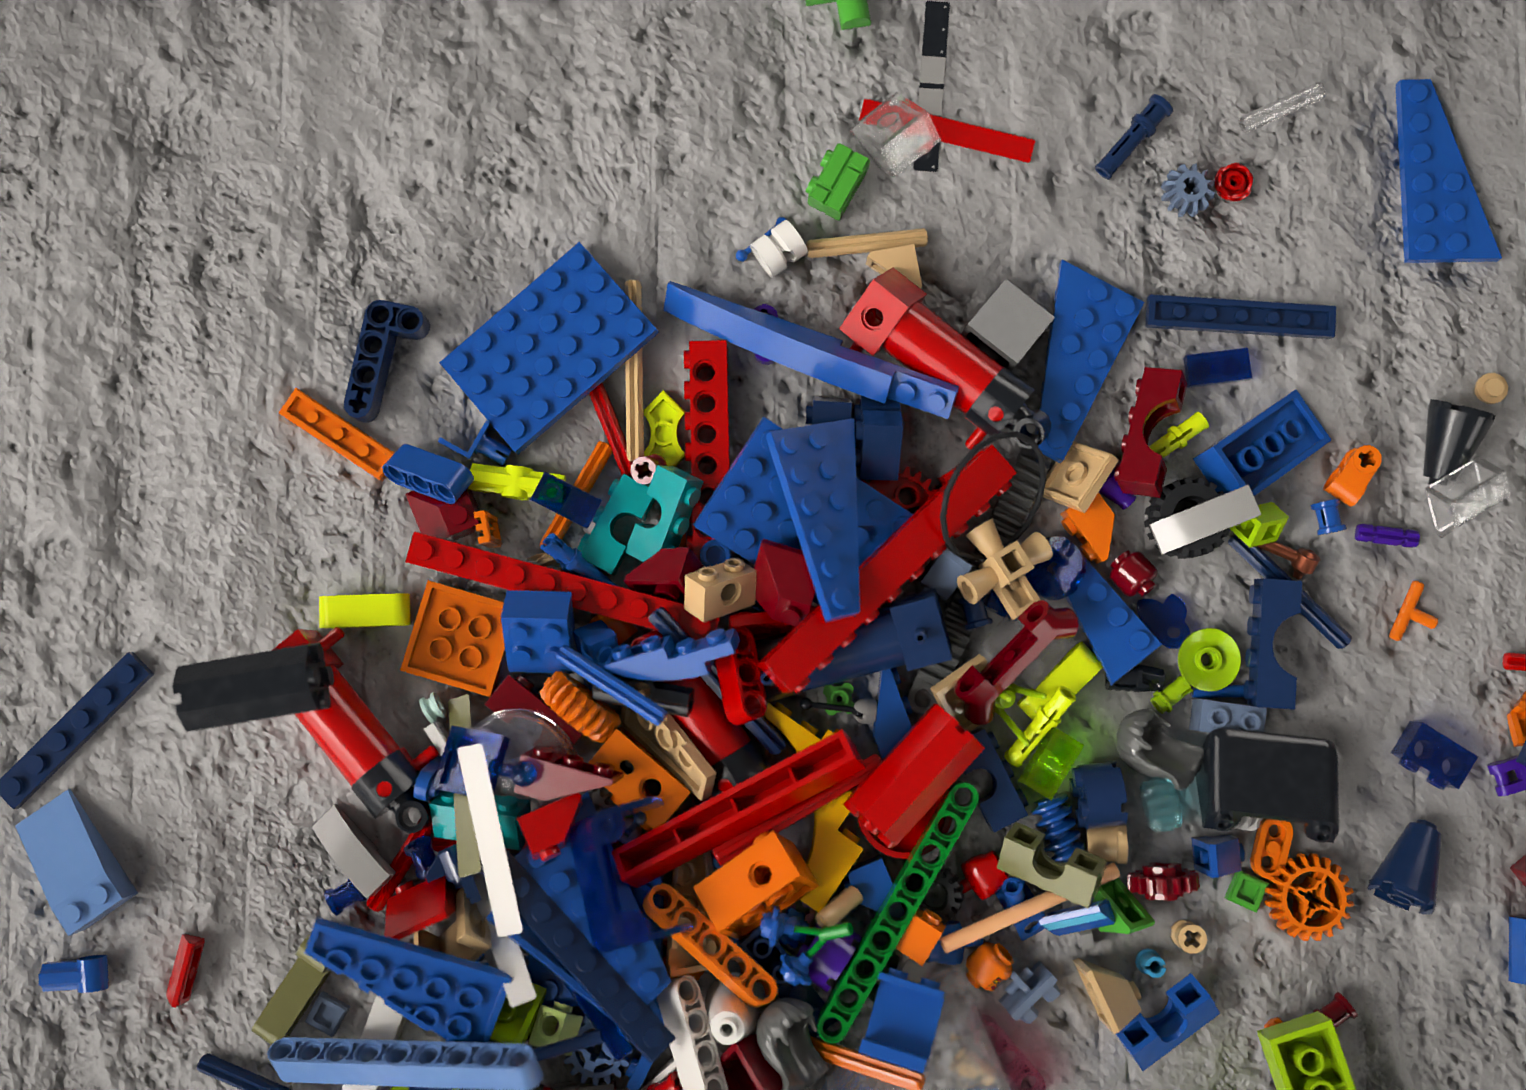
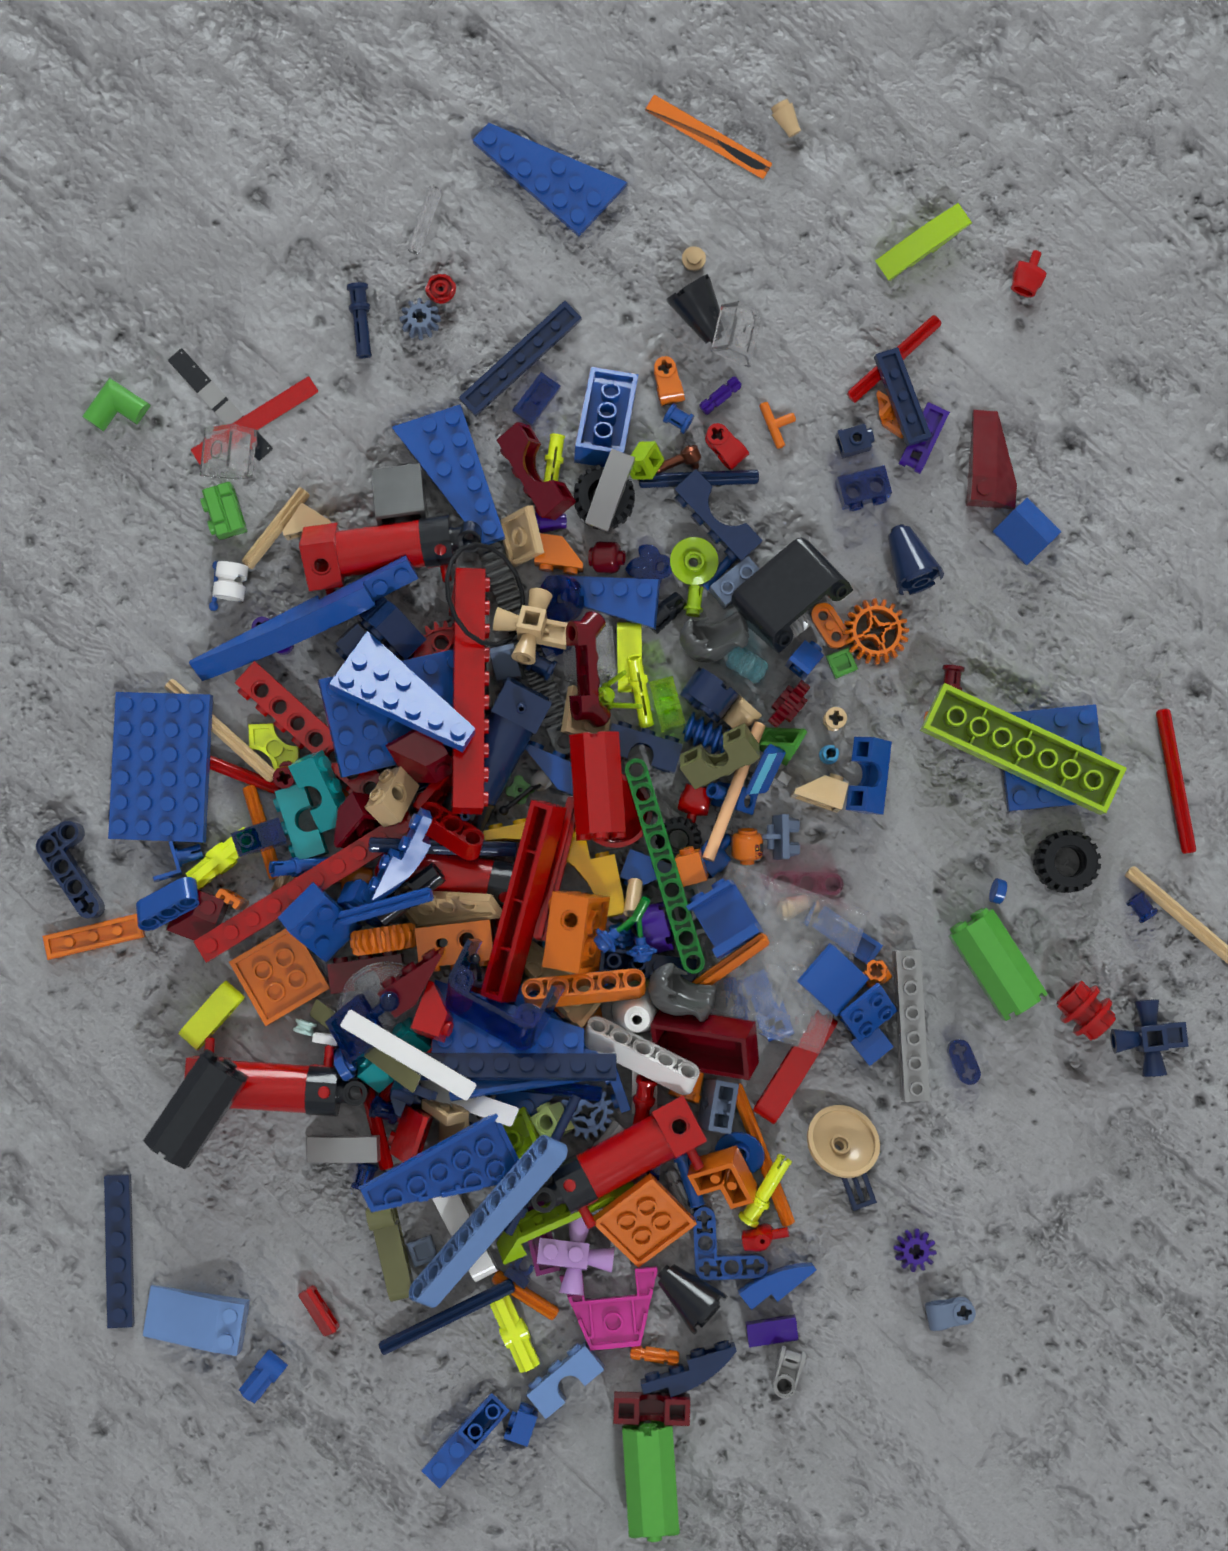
camera: 50 degrees left, 0 degrees up
(714, 553) = (368, 781): blue tile -> none
(1346, 590) = (728, 448): none -> red piece
(1460, 701) = (848, 446): none -> dark blue brick

